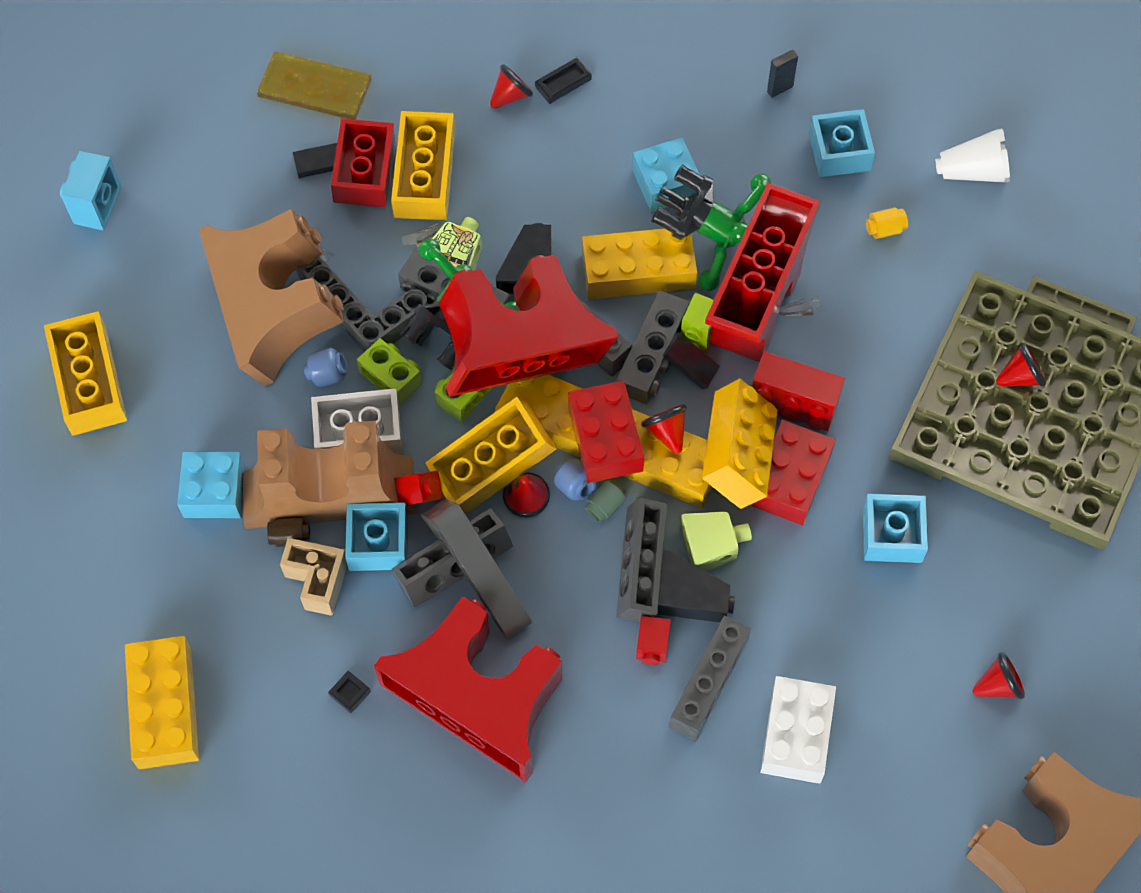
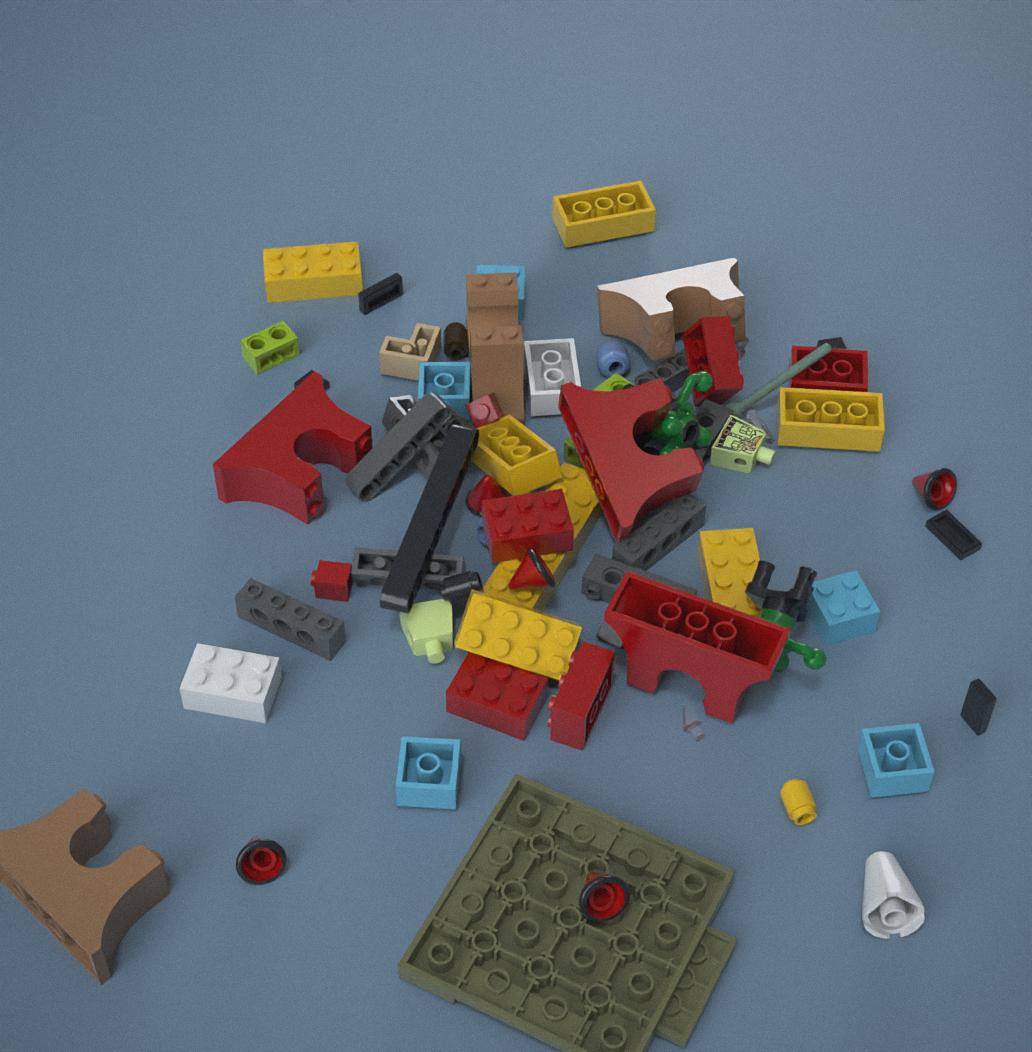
camera: 90 degrees right, 15 degrees down
(90, 190) = (779, 205): medium azure brick -> none
(204, 619) = (380, 293): none -> black tile
(296, 739) = (270, 347): none -> lime brick
(314, 85) = (919, 352): clear yellow tile -> none
(357, 258) = (712, 349): none -> red brick
(401, 250) = (740, 407): none -> sand green piece
(531, 242) = (733, 500): black slope -> none
(596, 526) = (429, 519): none -> black beam
(605, 500) = (474, 551): sand green brick -> none
(679, 498) = (459, 586): none -> black brick
(691, 591) = (368, 621): black slope -> none

